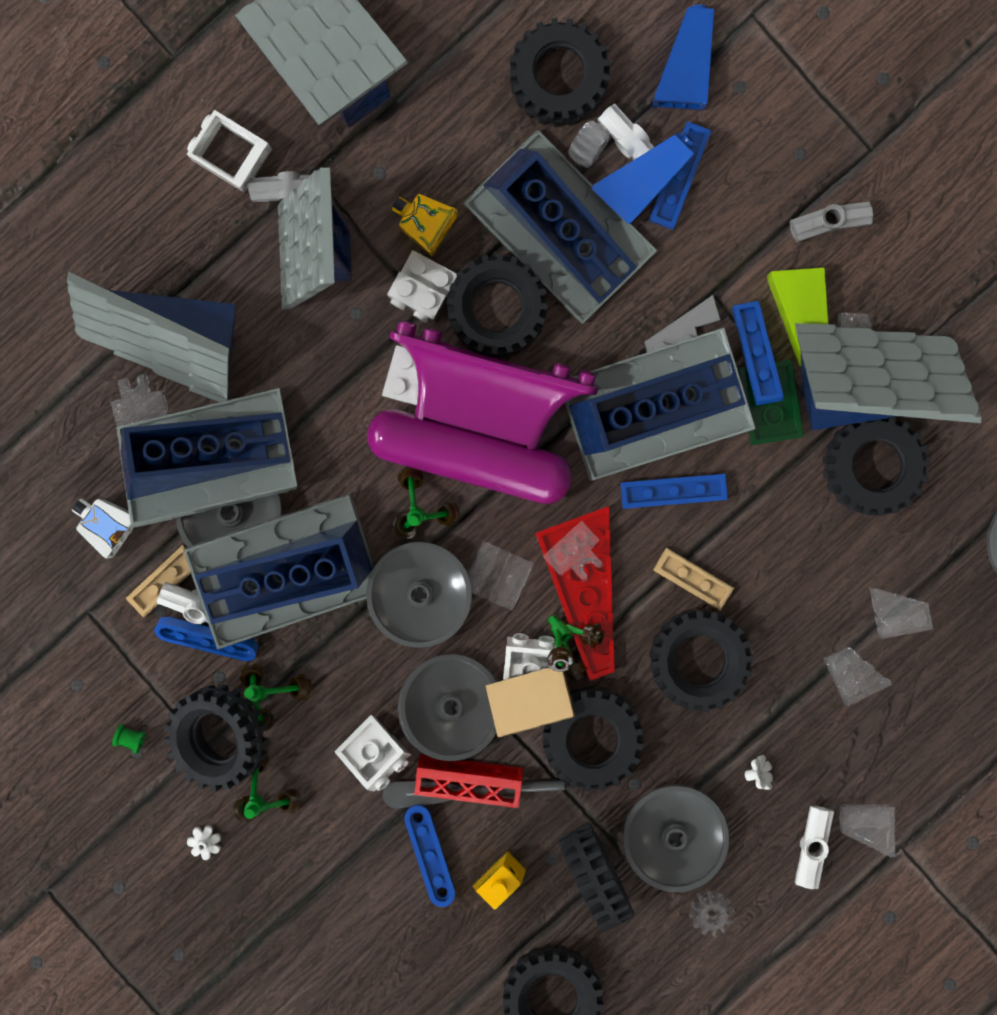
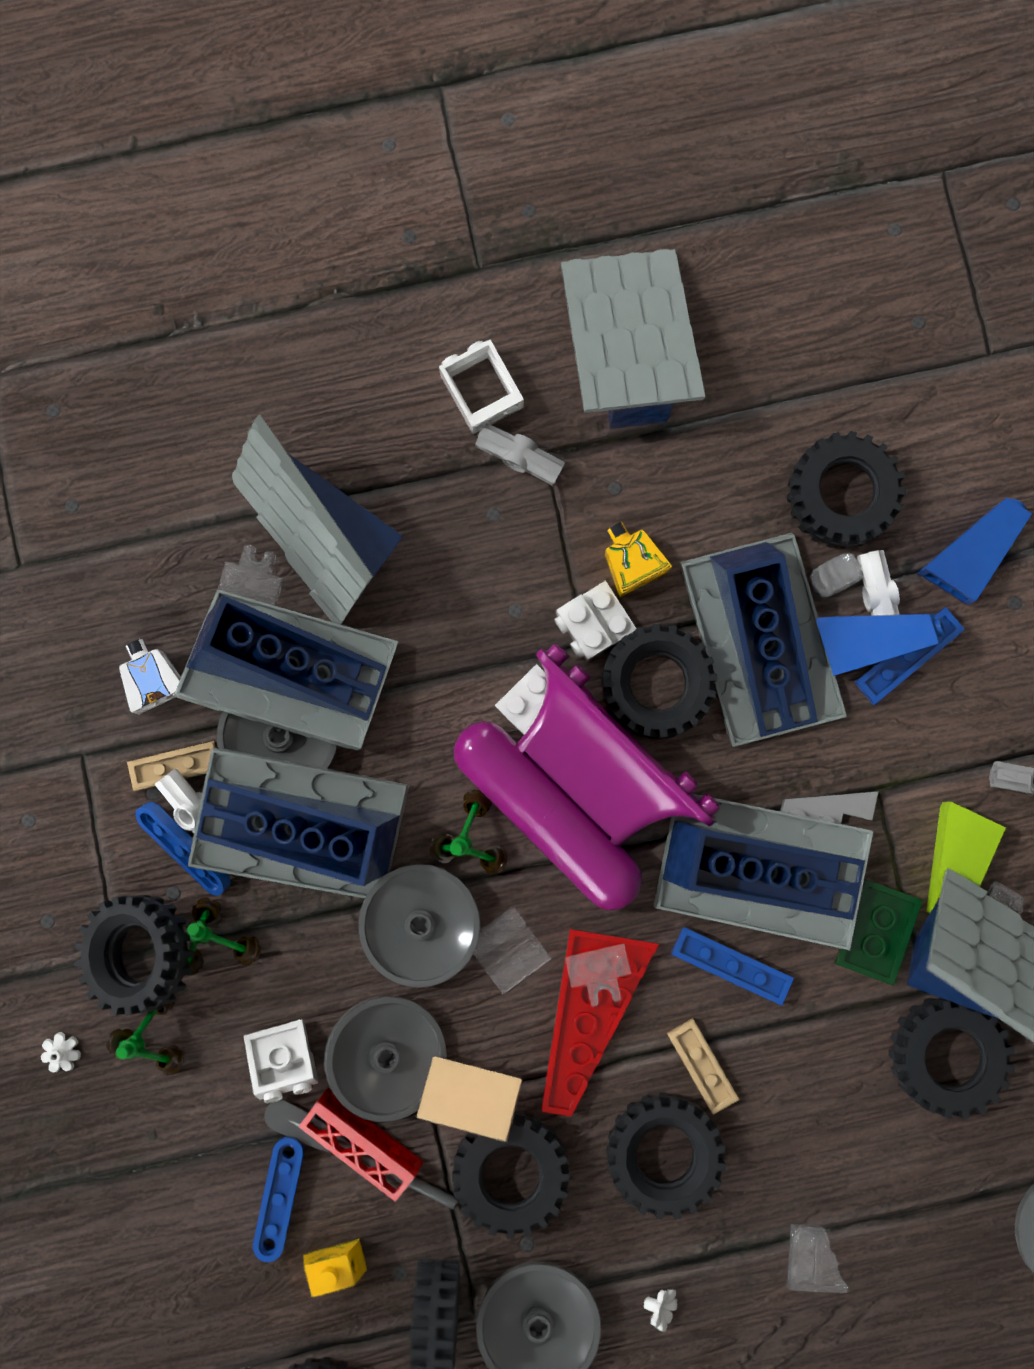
camera: 30 degrees right, 5 degrees down
(128, 738) = (47, 904): green bush -> none
(312, 240) = (513, 516): light grey piece -> none
(526, 654) = (494, 1050): white plate -> none
(561, 658) = (525, 1072): dark brown plant -> none
(757, 353) = (892, 875): blue plate -> none
(898, 614) = (893, 1223): clear wing -> none

